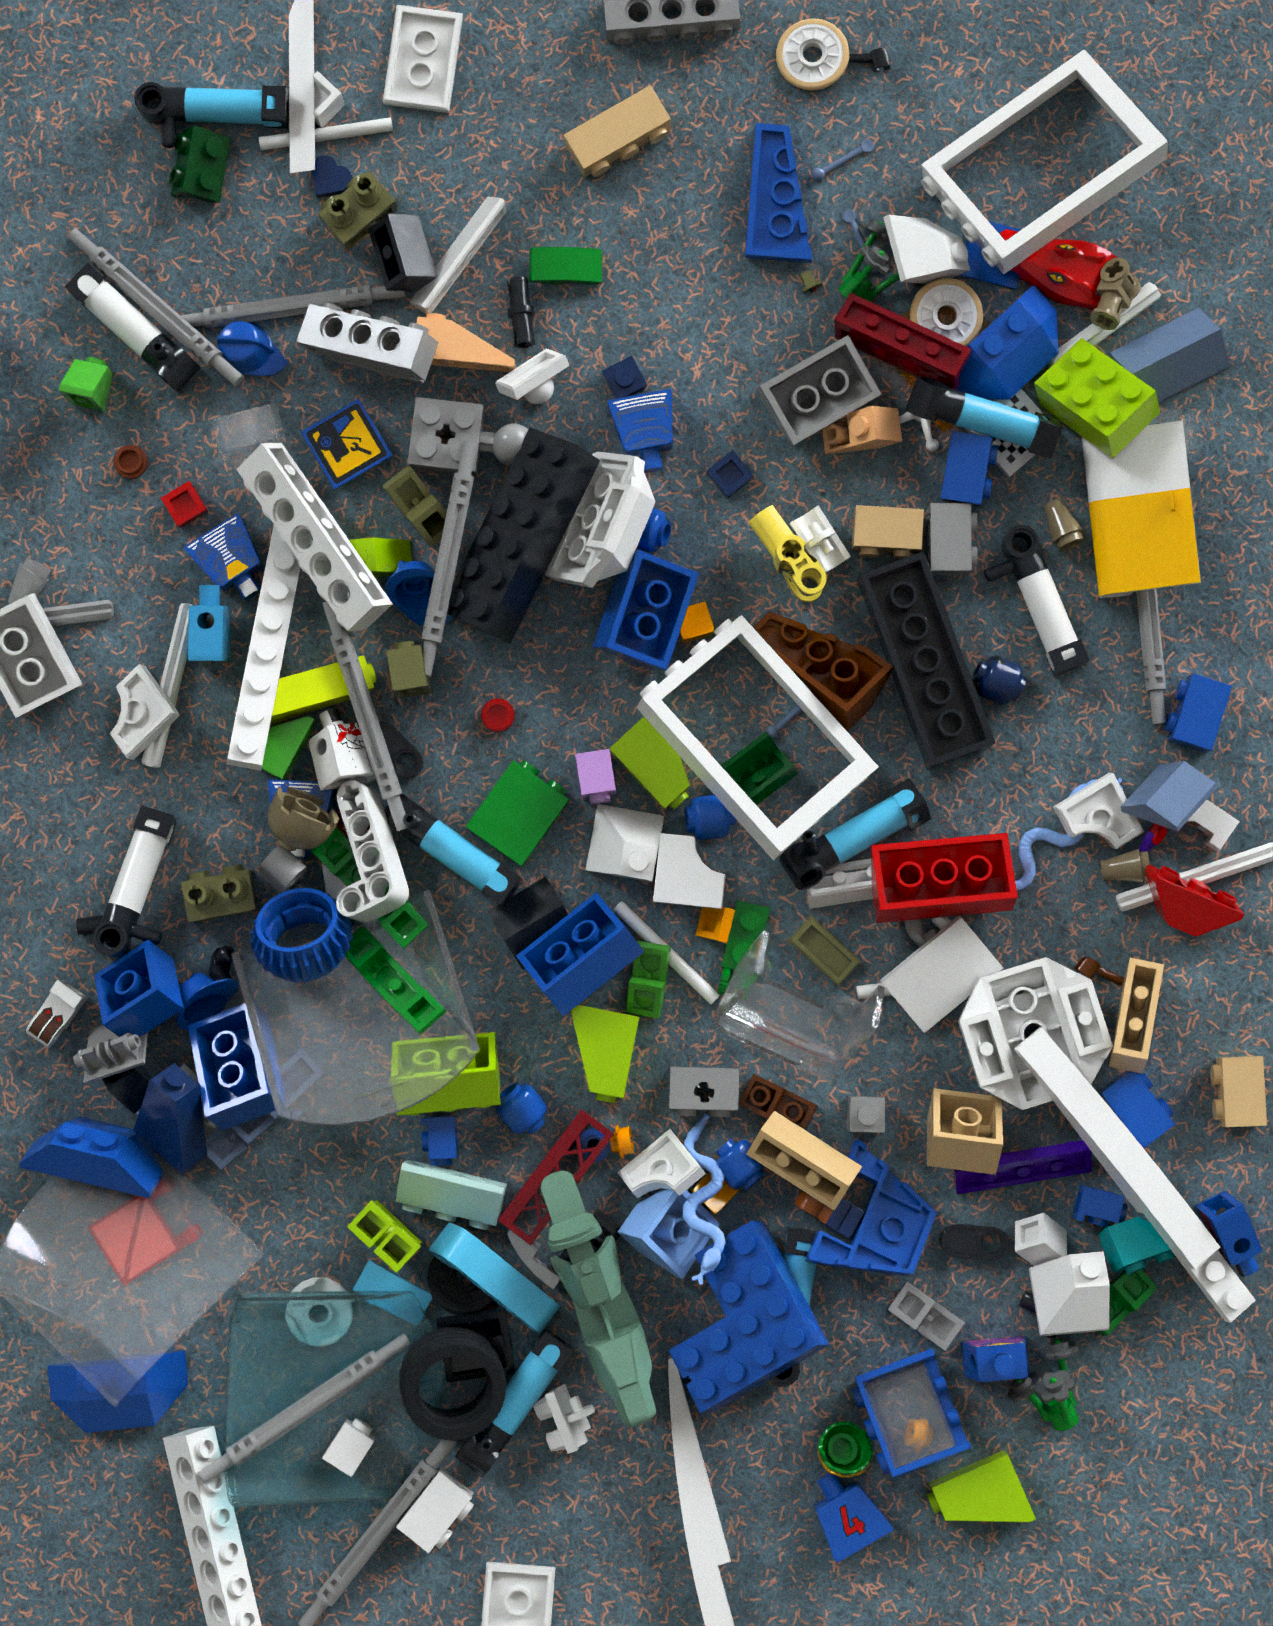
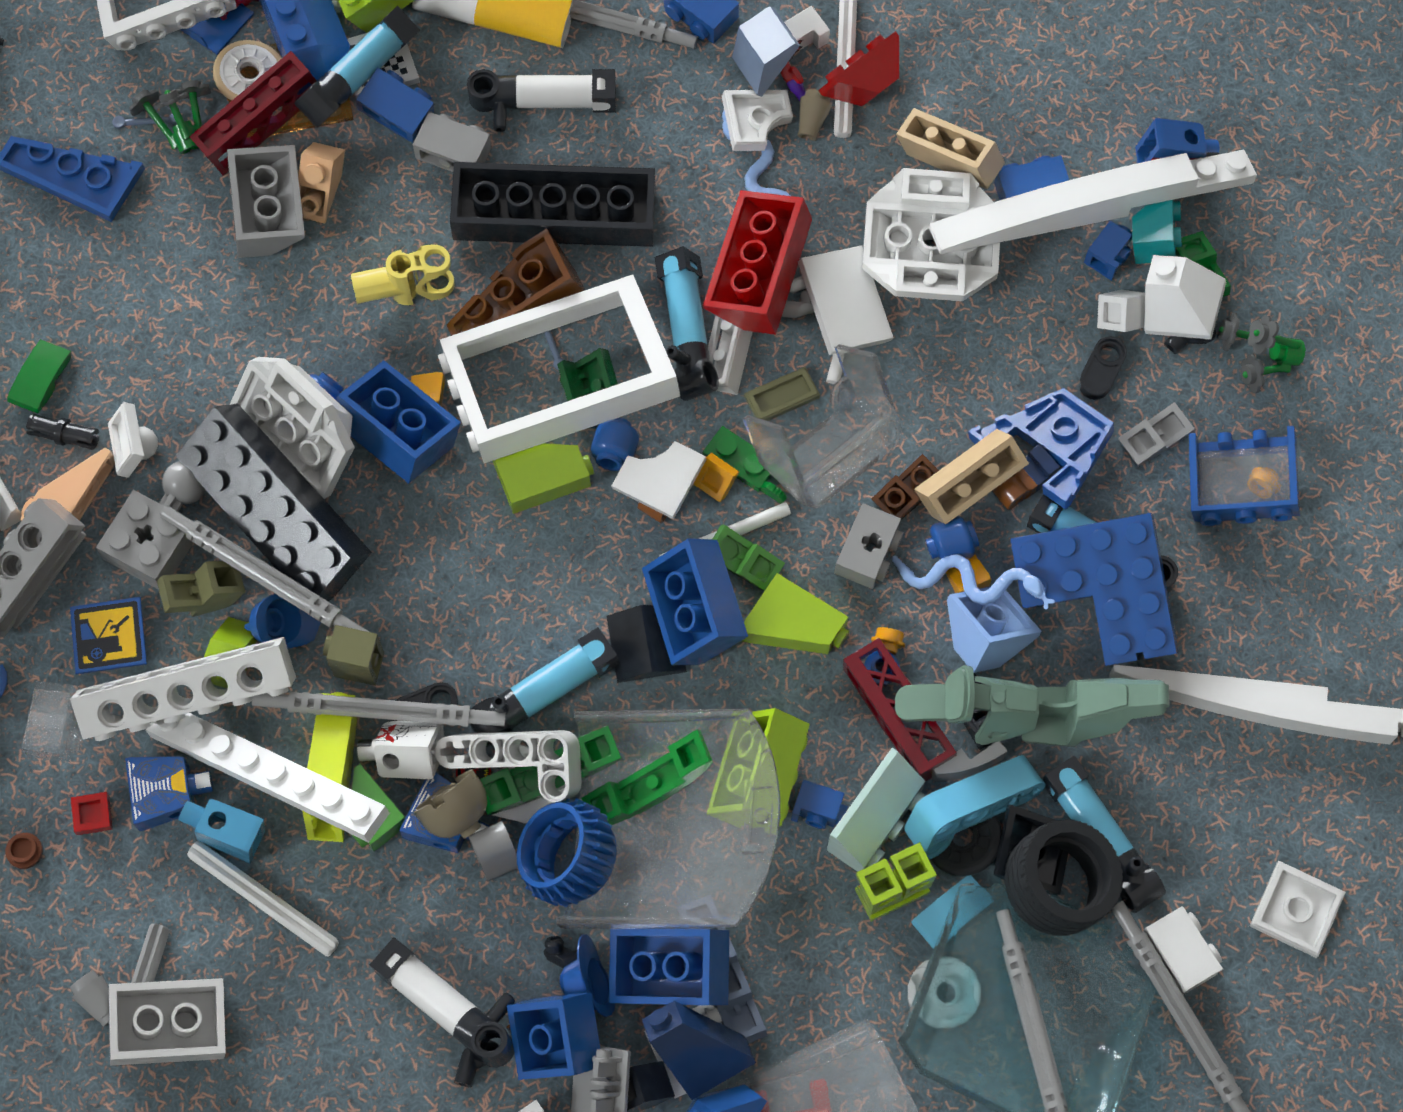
camera: 70 degrees left, 15 degrees down
(143, 712) = (277, 931): white tile -> none
(219, 895) = (492, 926): olive brick -> none
(349, 1446) = (1089, 1008): white brick -> none
(497, 715) = (433, 600): red tile -> none
(518, 812) = (535, 613): green brick -> none
(521, 1108) = (824, 716): blue head -> none
(568, 1416) = (1152, 796): white hips -> none
(596, 776) = (532, 524): lavender brick -> none
(624, 378) = (170, 366): dark blue plate -> none
(624, 843) = (608, 530): white slope -> none
(644, 425) = (217, 360): blue torso -> none
(662, 1166) = (926, 607): white tile -> none
(730, 474) = (304, 307): dark blue plate -> none
(809, 282) = (161, 176): olive piece -> none
(820, 539) = (407, 243): white hips -> none
(845, 1449) = (1256, 548): green hair -> none
(849, 1517) = (1321, 571): blue torso -> none
(866, 147) = (64, 84): sand blue hinge -> none
(866, 1114) = (948, 412): light grey brick -> none
(887, 531) = (420, 193): tan brick -> none
(925, 250) = (184, 62): white slope -> none
(931, 444) = (329, 130): white piece -> none
(964, 1131) = (998, 329): tan brick -> none
(981, 1493) = (1337, 444): lime slope -> none
(996, 1359) = (1220, 380): blue torso -> none
(999, 680) = (599, 149): dark blue head -> none
(1028, 1167) = (1049, 300): dark purple plate -> none
(1063, 527) = (484, 51): dark tan cone -> none
(1089, 966) = (889, 173): reddish brown hand -> none
(1239, 1091) = (1051, 97): tan brick -> none

